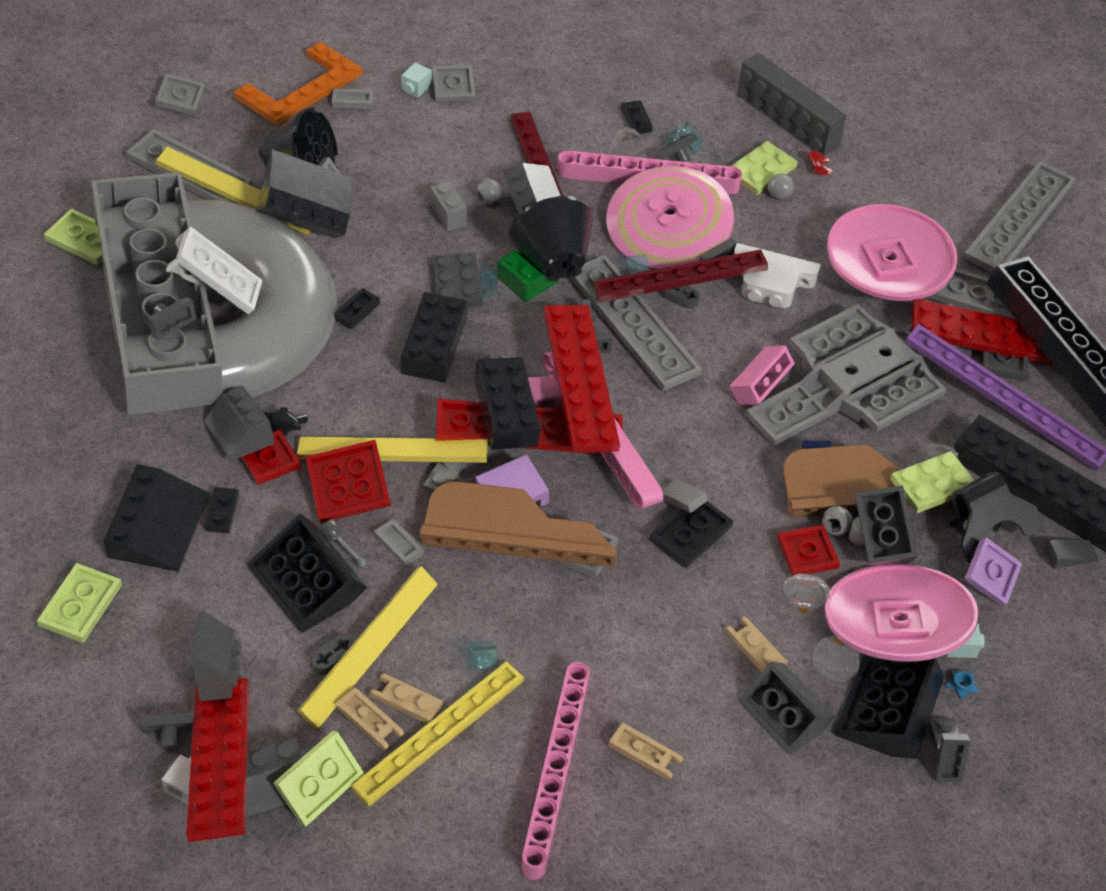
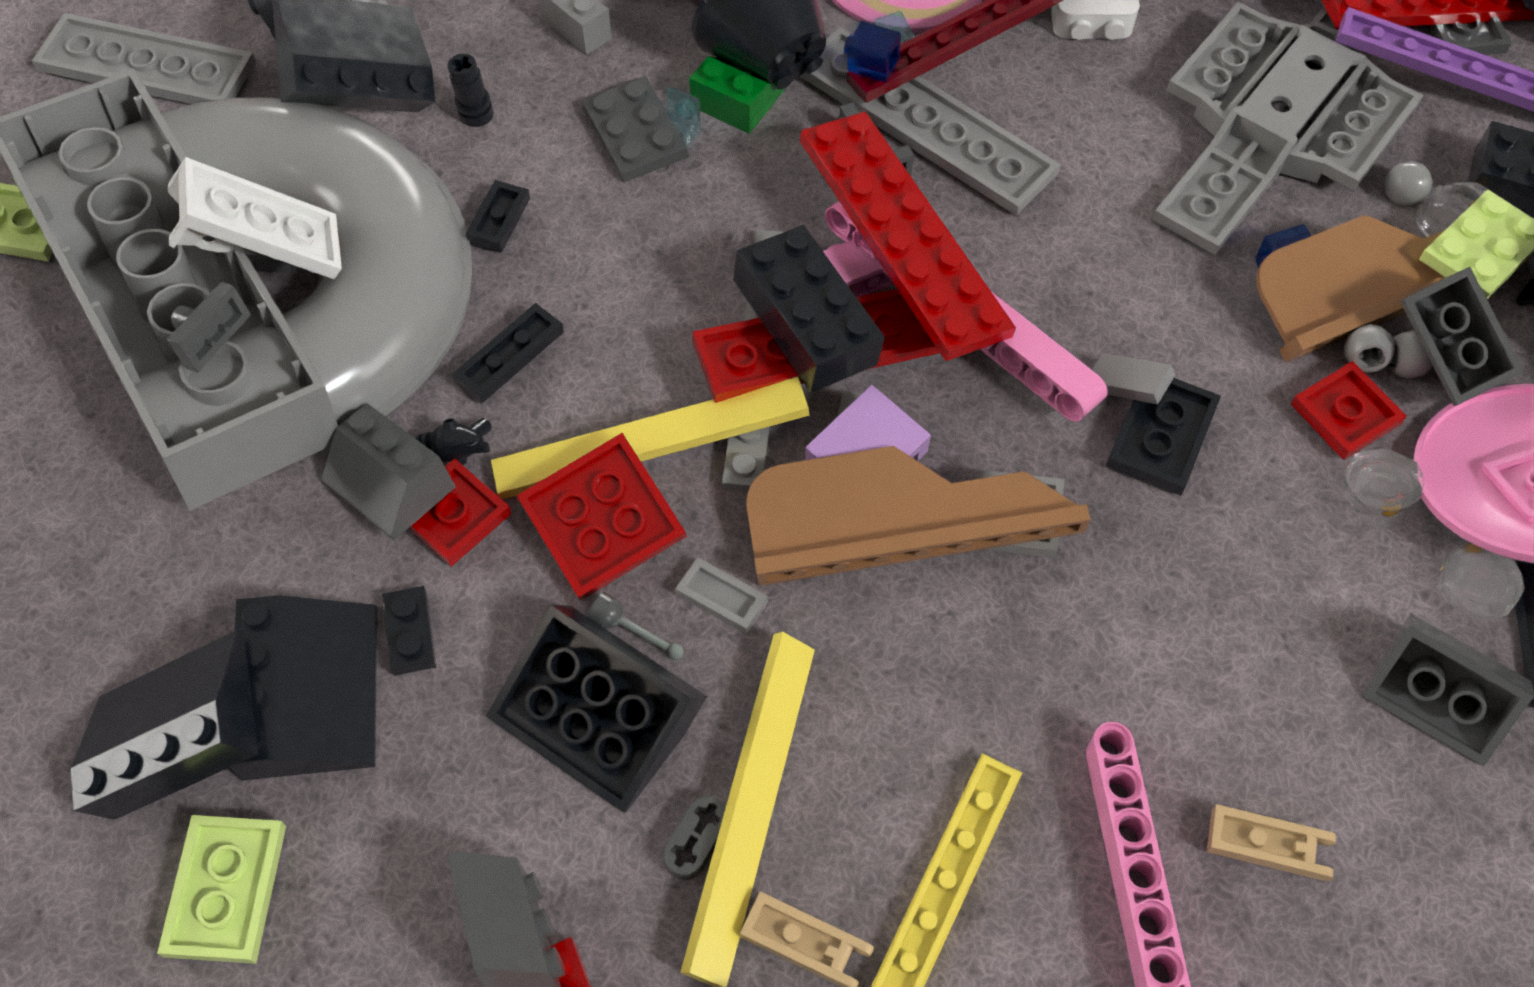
camera: 15 degrees left, 10 degrees up
(78, 517) = (166, 731): none -> black slope
(213, 180) = (192, 69): light yellow tile -> none
(332, 383) = (508, 353): none -> black plate
(367, 234) = (470, 94): none -> black axle
(407, 699) = (852, 878): tan hinge -> none
(434, 337) = (639, 229): black brick -> none
(482, 654) = (944, 765): clear light blue bracket -> none
(611, 273) = (872, 51): none -> clear blue brick
(681, 296) = (974, 61): dark grey beam -> none
(754, 645) = (1348, 596): tan hinge -> none
(762, 375) = (1153, 149): bright pink brick -> none
(914, 437) = (1408, 183): none -> light grey piece

